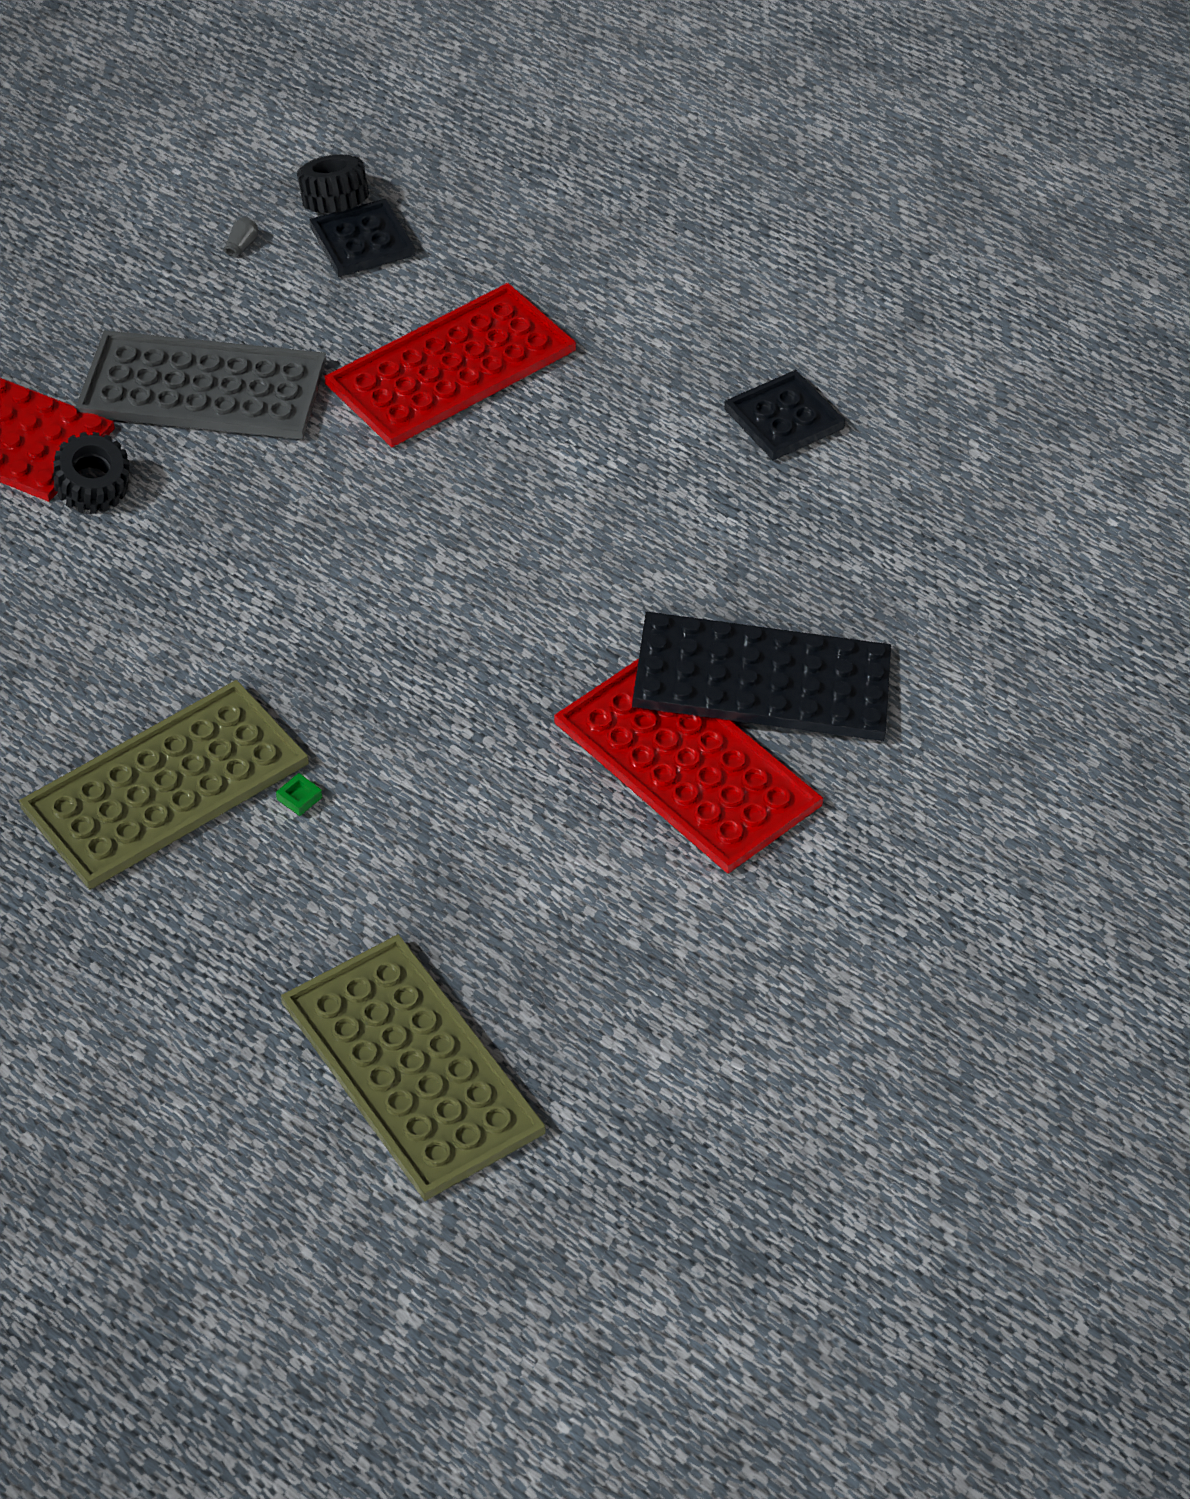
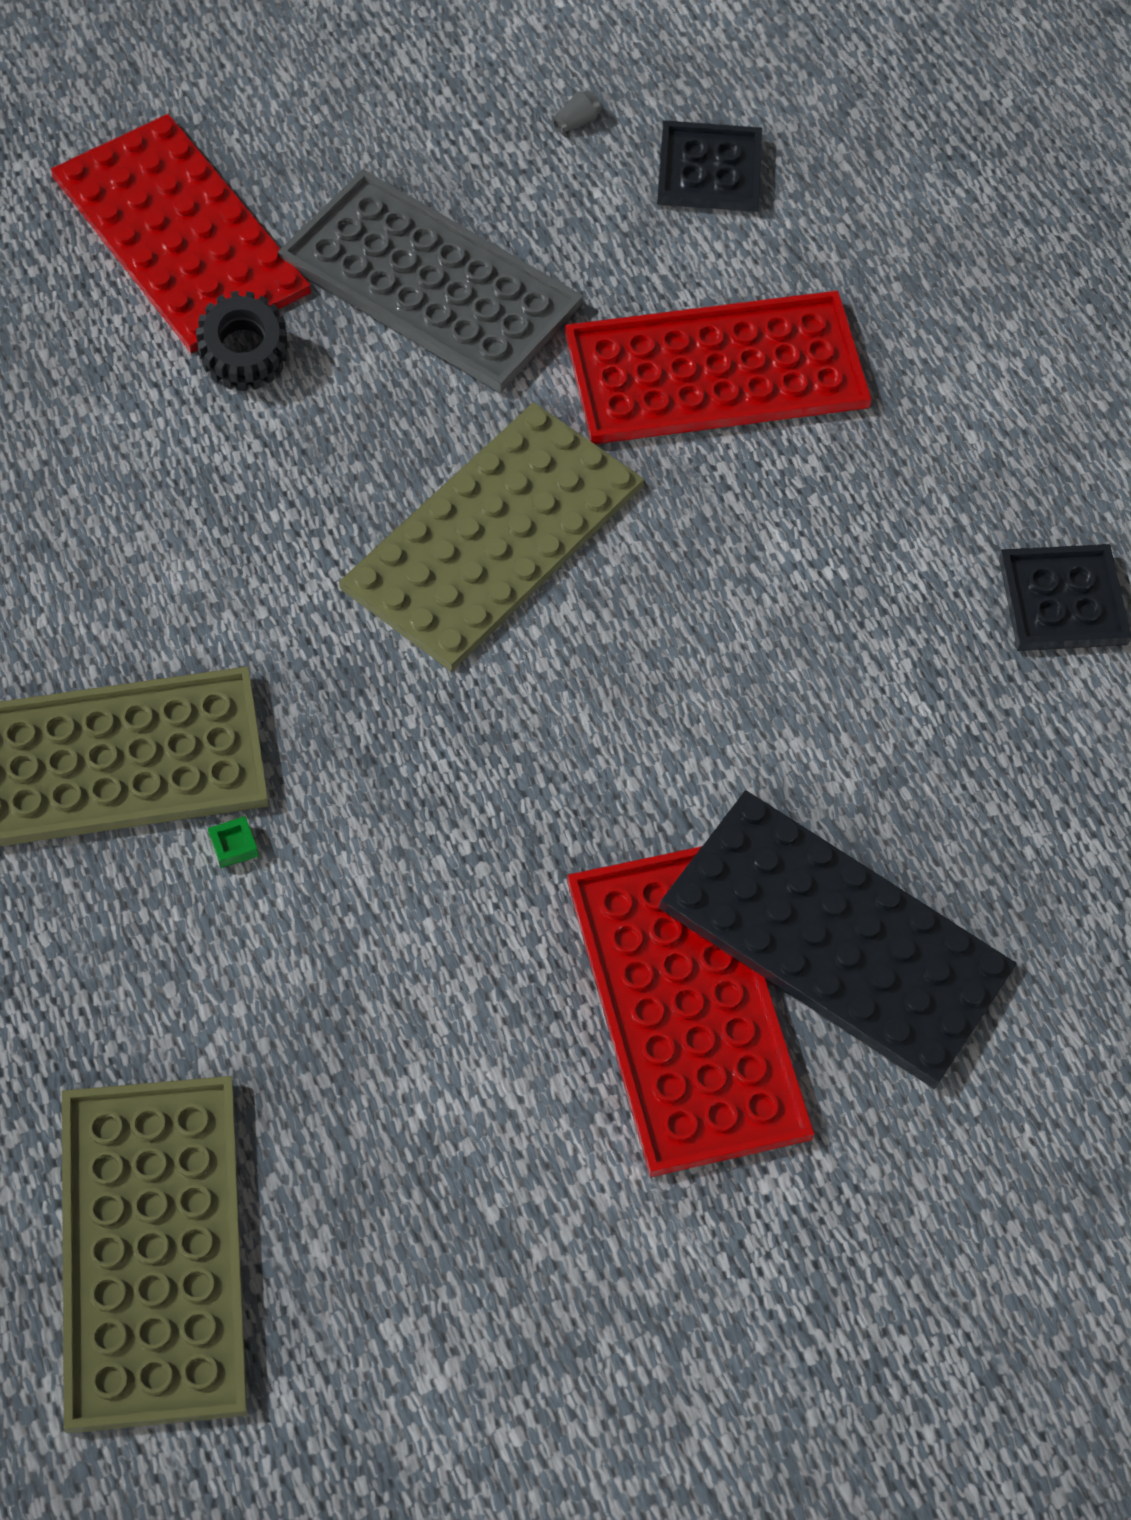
camera: 25 degrees right, 10 degrees up
(333, 183) = (710, 87): black tyre -> none
(356, 532) = (491, 535): none -> olive plate

